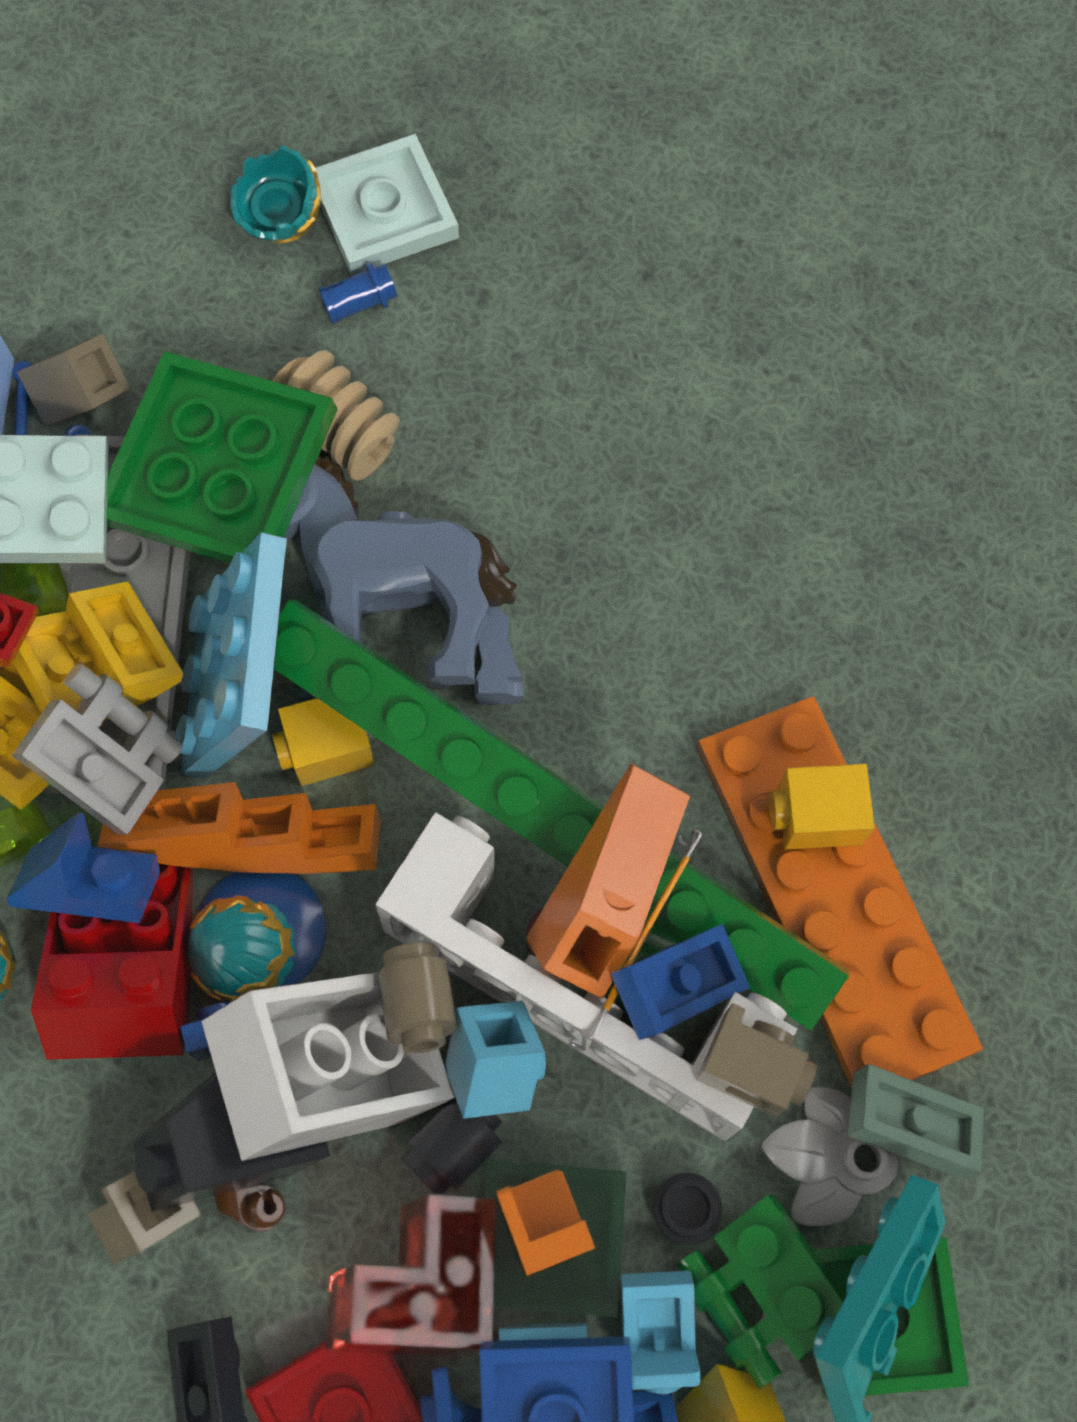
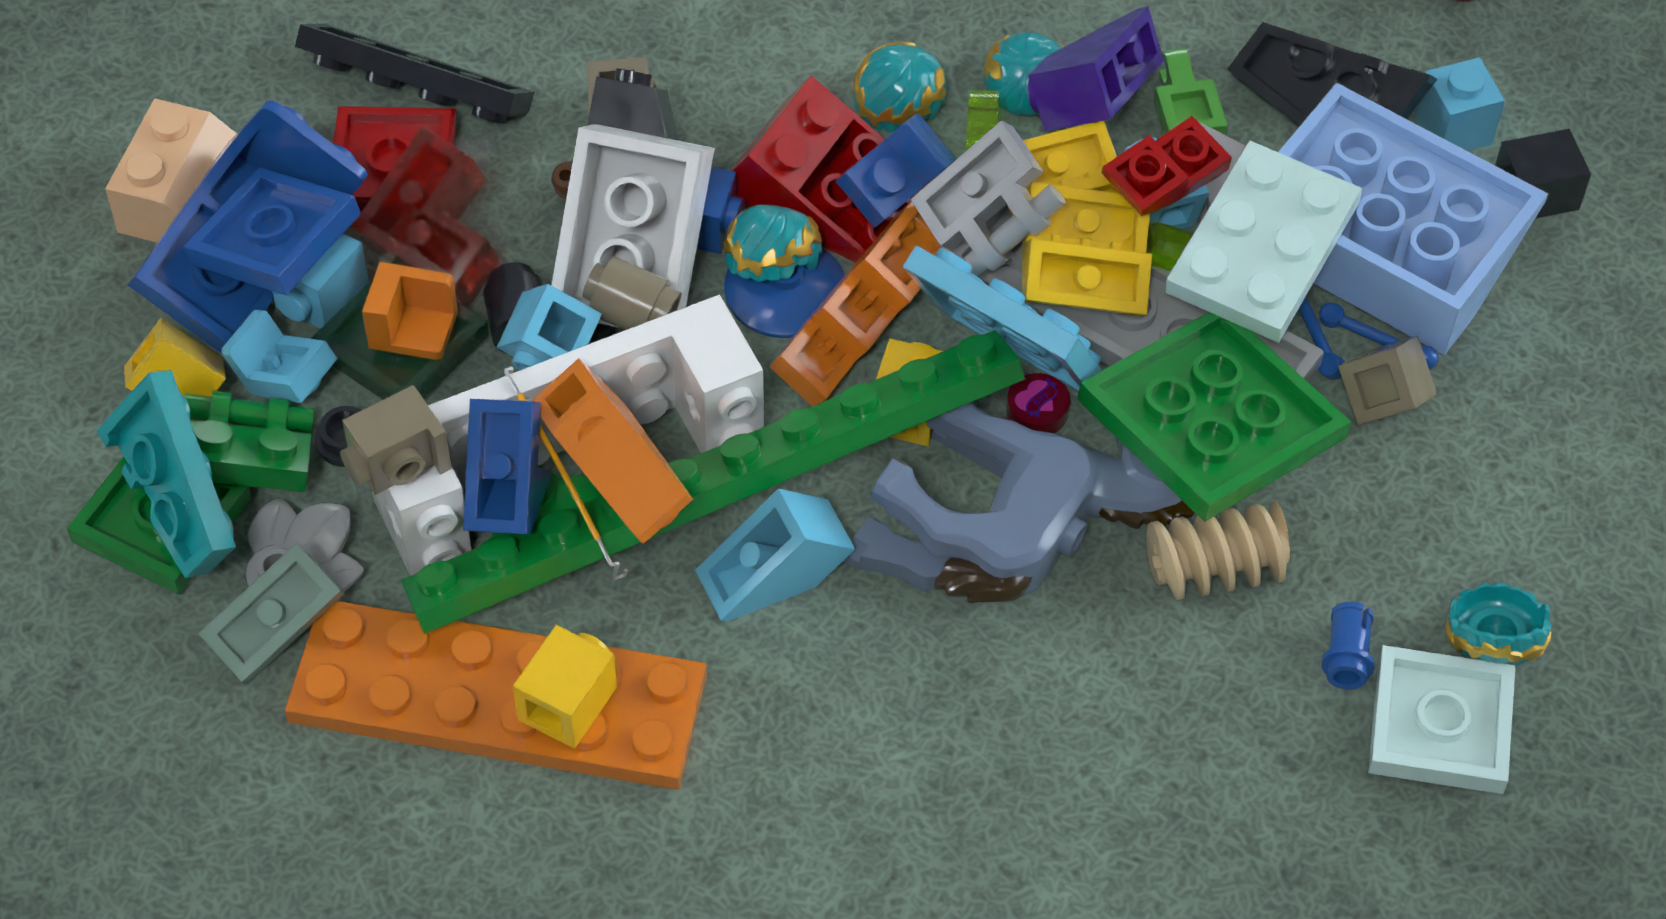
camera: 125 degrees right, 15 degrees down
(564, 737) = (775, 554): none -> medium azure slope

